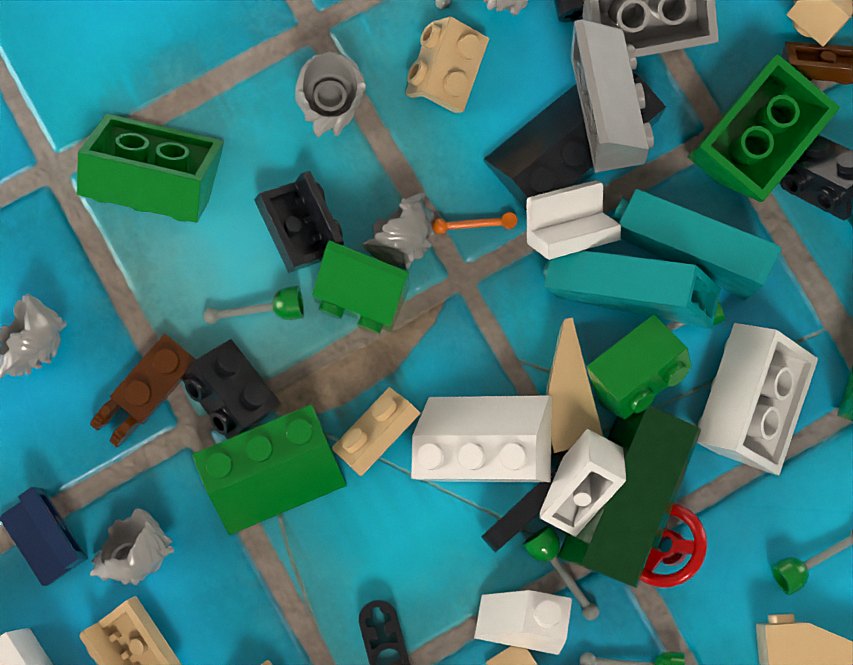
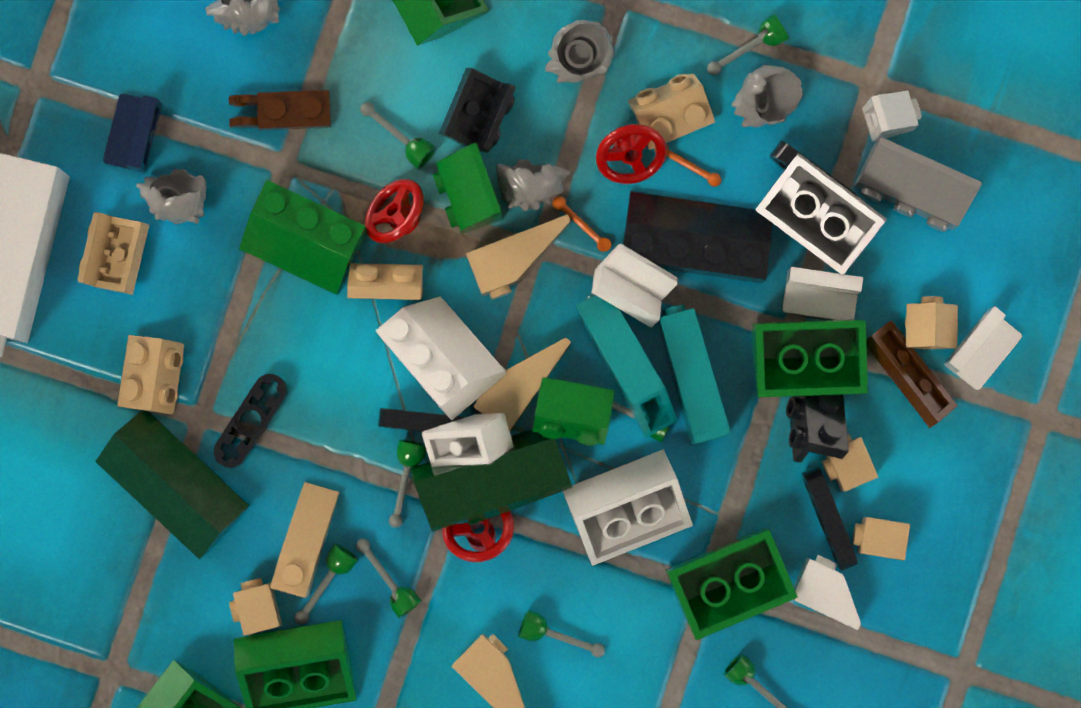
camera: 45 degrees right, 5 degrees up
(229, 390) = (330, 165): black bracket -> none
(325, 368) = (397, 214): none -> red piece
(446, 124) = (627, 147): none -> red piece
(451, 311) = (509, 259): none -> tan slope
(524, 620) = (351, 481): white slope -> none
(536, 82) = (713, 179): none -> orange hinge
(609, 96) = (731, 237): light grey slope -> none
(712, 78) = (821, 294): none -> white panel

